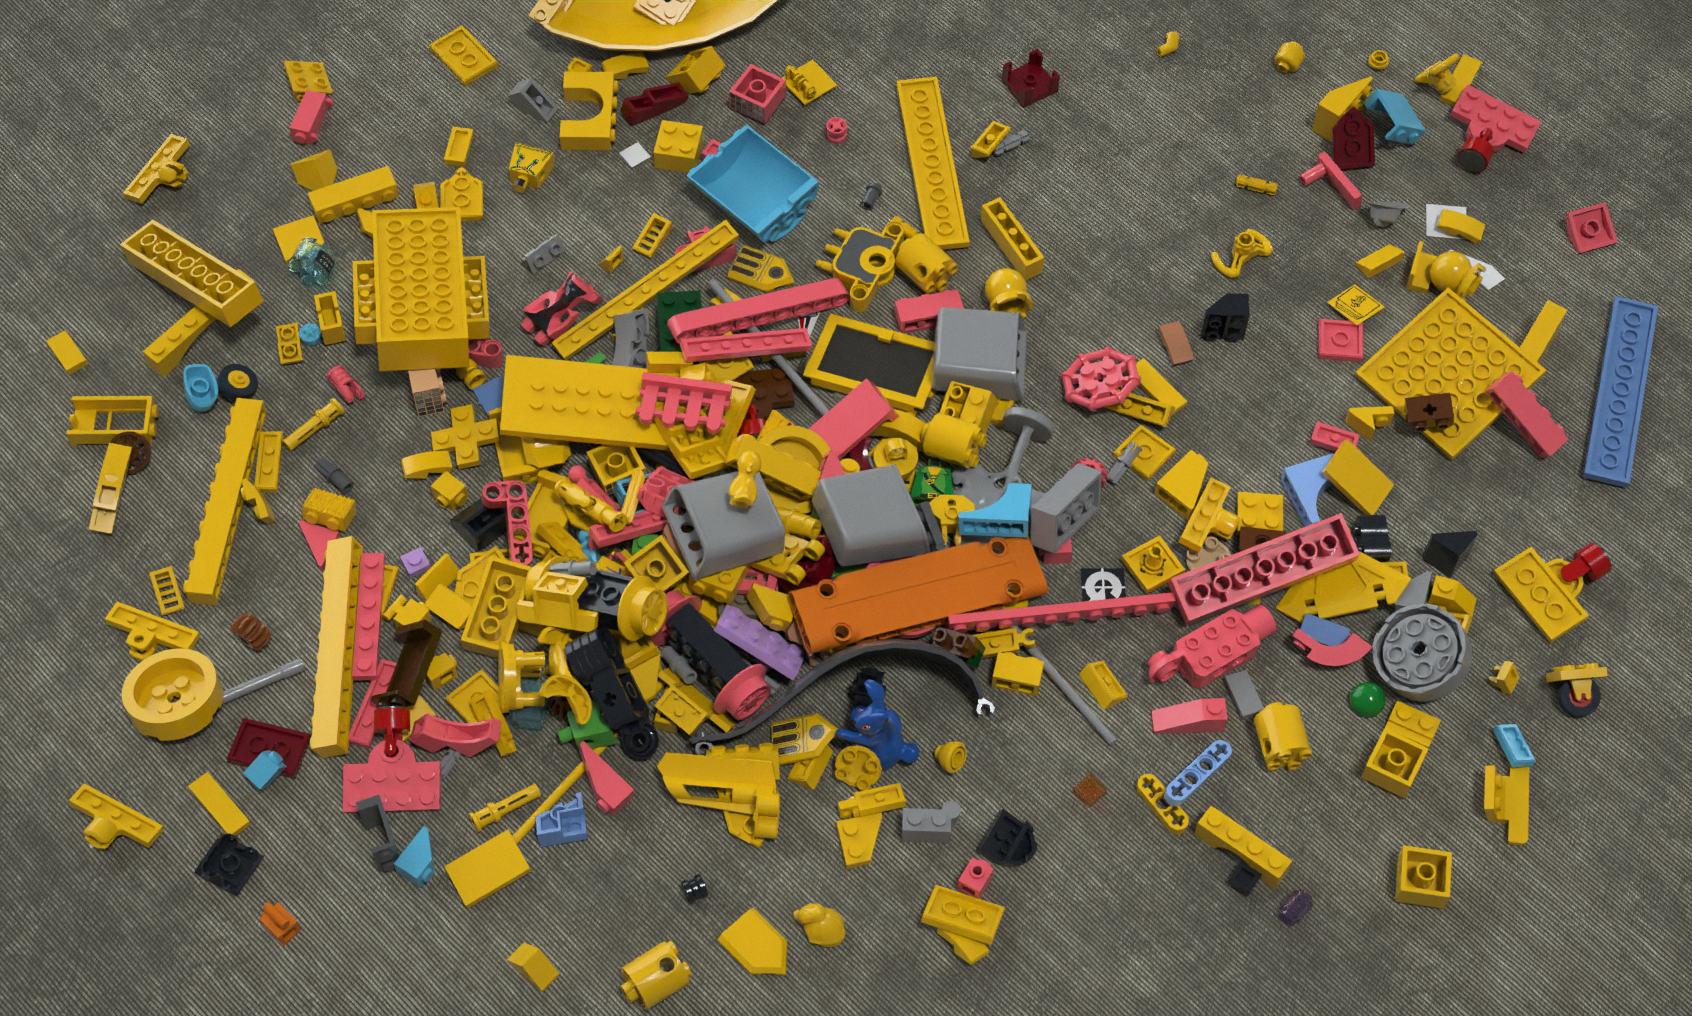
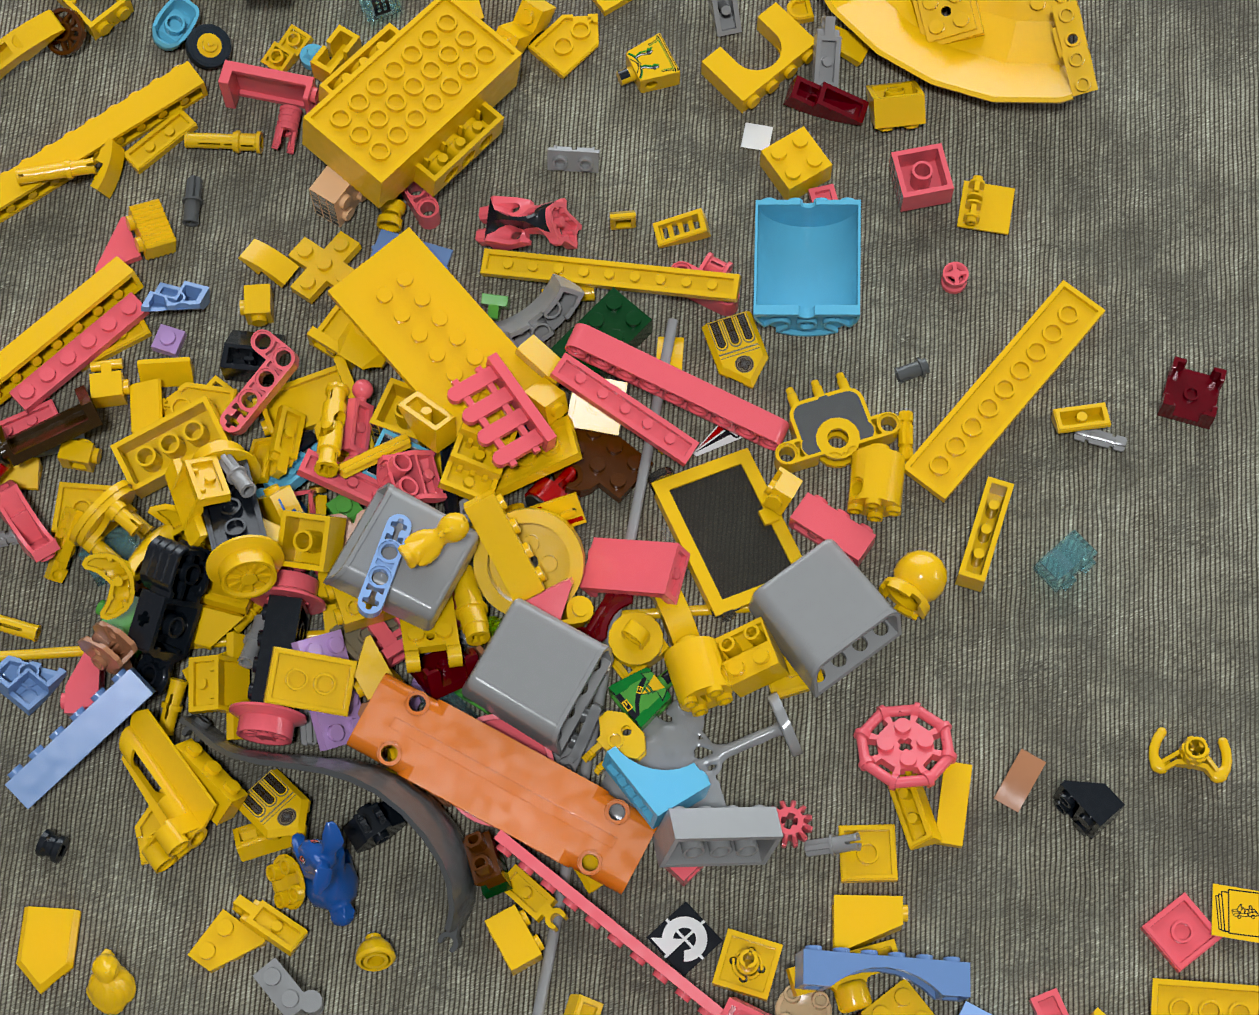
camera: 50 degrees right, 10 degrees up
(235, 520) = (56, 171): none -> yellow pin
(311, 366) = (266, 85): none -> coral panel
(400, 525) = (170, 297): none -> medium blue slope
(605, 741) = (109, 648): none -> nougat hinge
(625, 73) = (826, 53): none -> light grey hinge
(642, 810) = (82, 736): none -> medium blue brick
(643, 449) = (428, 421): none -> yellow slope
(663, 731) = (172, 705): none -> yellow pin
(732, 523) = (383, 565): none -> light blue beam
(750, 638) = (310, 681): none -> yellow tile
(879, 314) = (781, 490): none -> yellow brick
(1068, 216) = (1066, 561): none -> clear light blue brick
(1256, 473) = (939, 979): none -> medium blue arch

